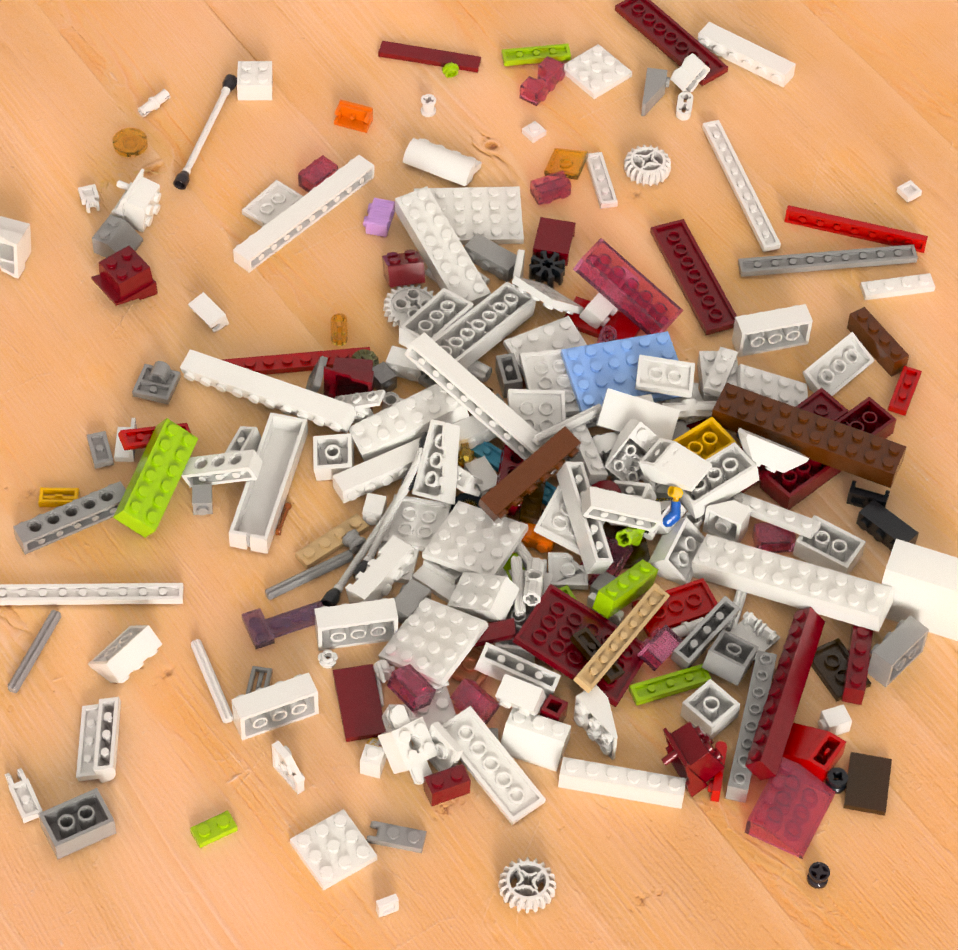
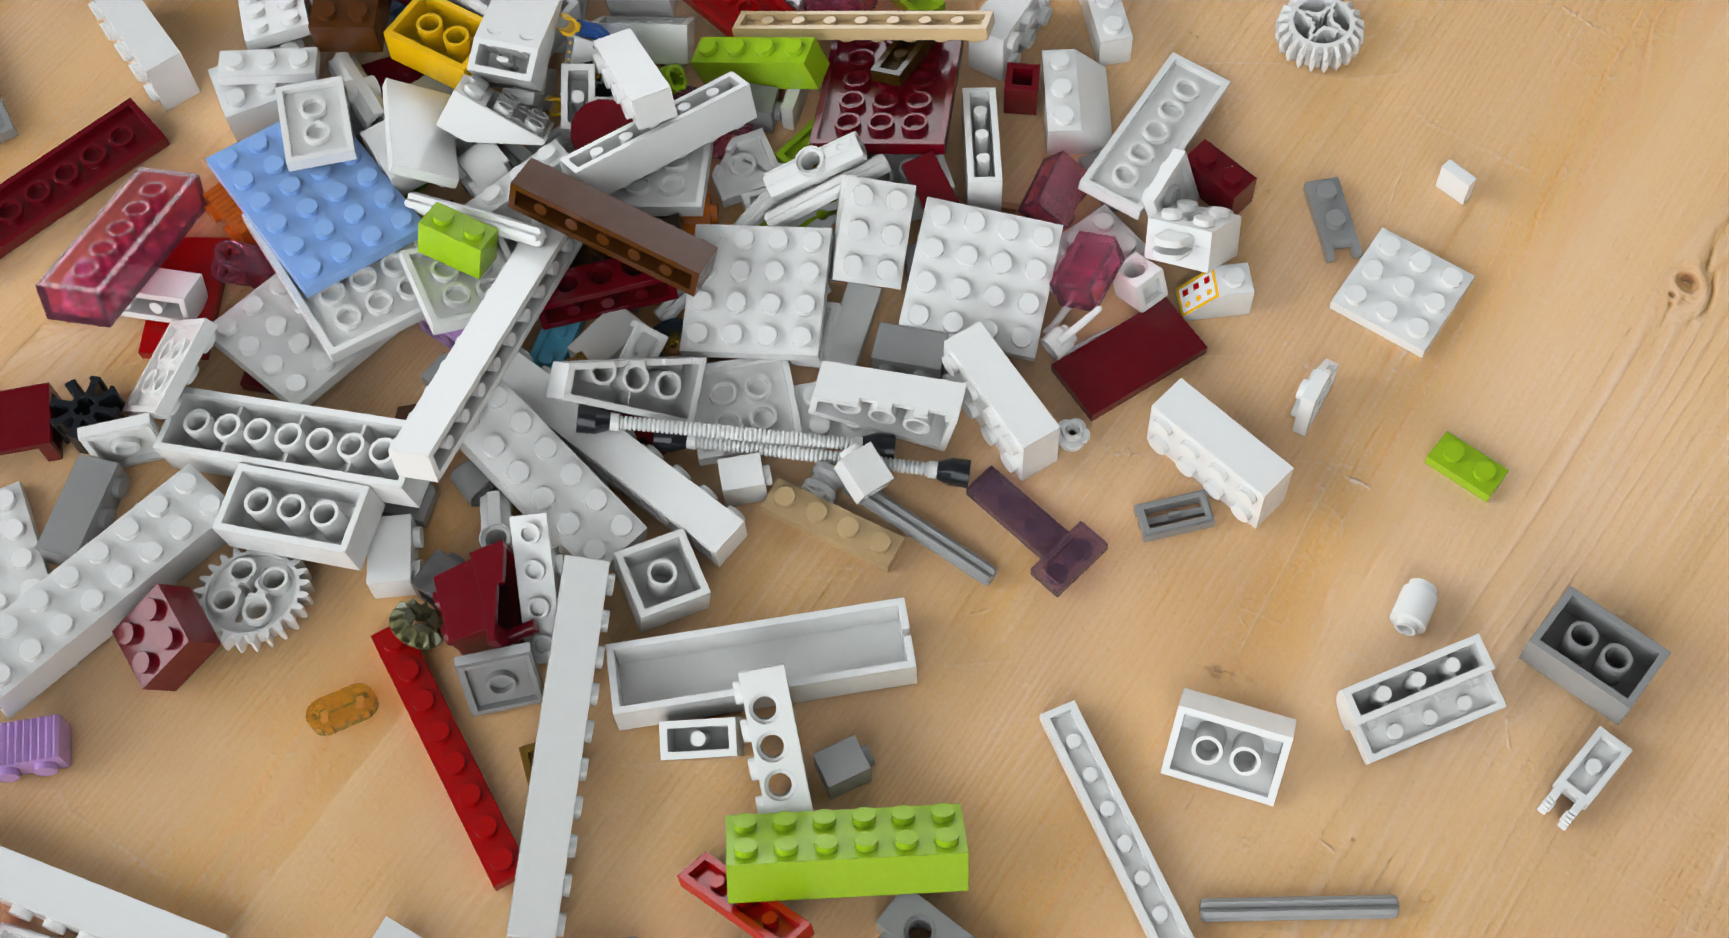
camera: 105 degrees left, 10 degrees up
(149, 763) = (1414, 607): none -> white brick
(212, 681) = (1203, 588): white axle -> none
(345, 549) = (862, 471): none -> white brick
(508, 373) = (369, 378): light grey brick -> none
(520, 695) = (1034, 114): white slope -> none
(556, 411) = (457, 240): none -> lime brick

